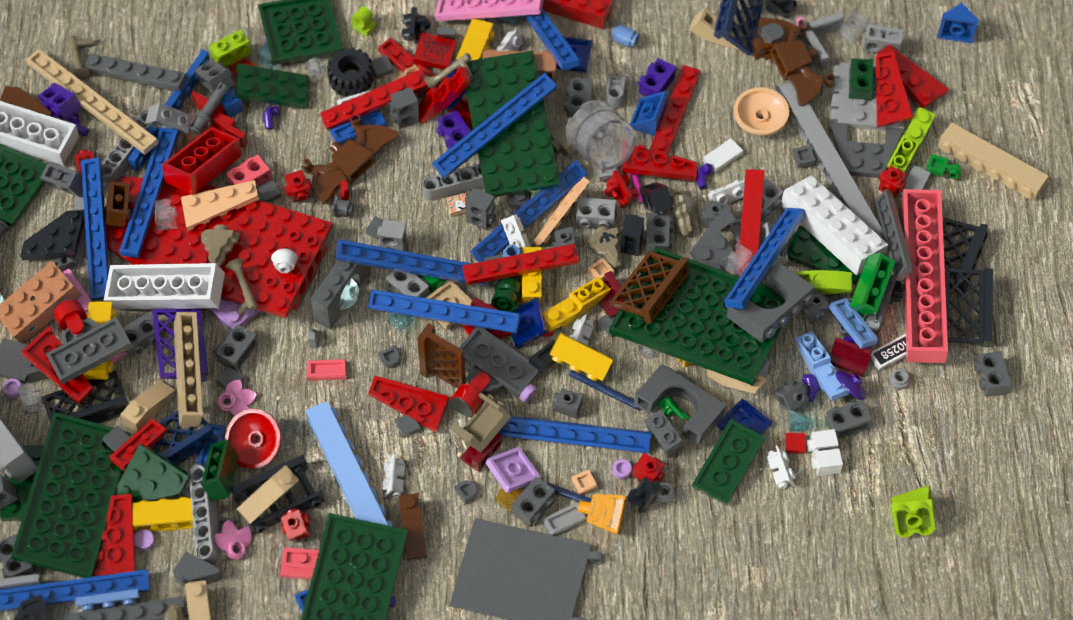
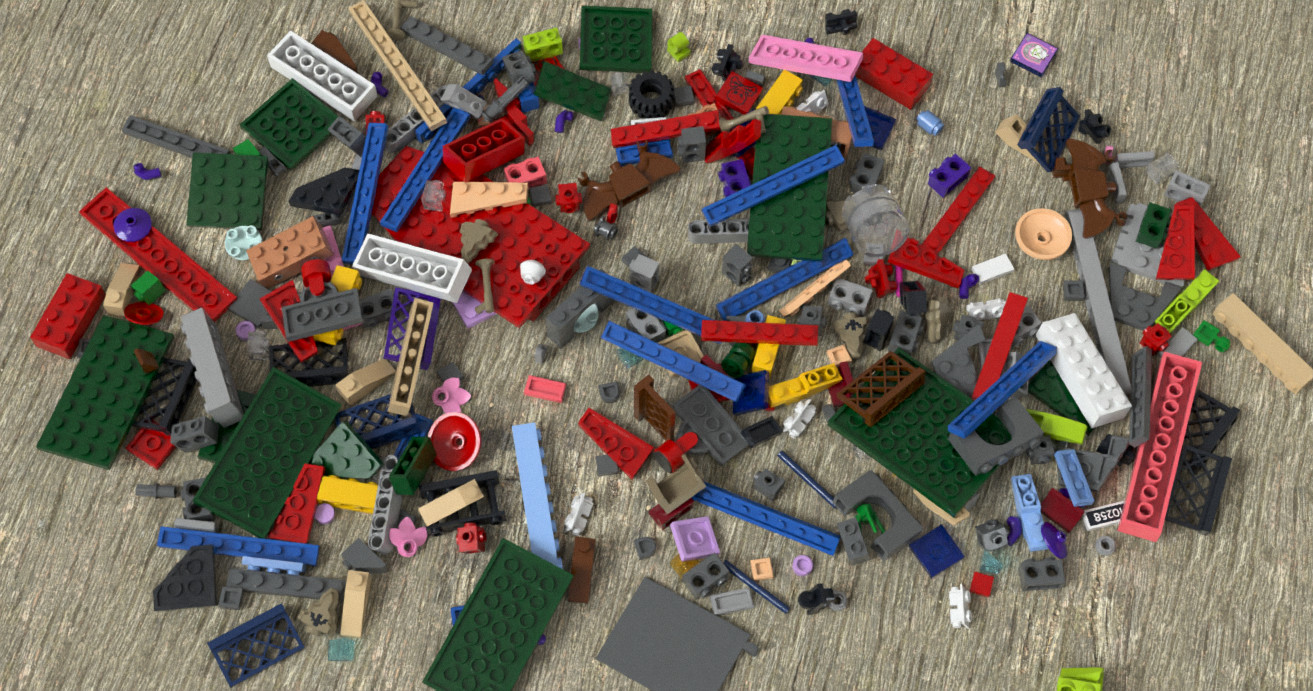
camera: 15 degrees right, 5 degrees up
(60, 101) = (367, 58): dark purple brick -> none
(116, 438) = (325, 408): dark grey tile -> none
(117, 204) = (392, 171): reddish brown brick -> none
(148, 435) = (353, 413): red plate -> none
(240, 349) = (468, 348): dark grey brick -> none
(265, 56) = (574, 59): clear light blue slope -> none
(298, 563) = (462, 577): coral plate -> none
(457, 204) = (716, 253): tile -> none
(513, 228) = (763, 292): white hinge -> none
(528, 393) = (731, 464): lavender tile -> none
(580, 357) = (792, 442): yellow brick -> none
(605, 511) = (772, 606): light orange torso -> none
(615, 90) = (905, 173): light grey piece -> none
(648, 467) = (827, 573): red brick -> none
(649, 113) = (931, 208): blue slope -> none
(728, 462) = (909, 587): dark green plate -> none
(738, 260) = (977, 383): clear brick -> none
(772, 32) = (1077, 156): dark grey tile -> none
(825, 457) = (1008, 602): white piece -> none
(872, 284) = (1104, 443): green brick -> none
(958, 25) = (1268, 193): blue slope -> none
(996, 373) = (1207, 567): dark grey brick -> none

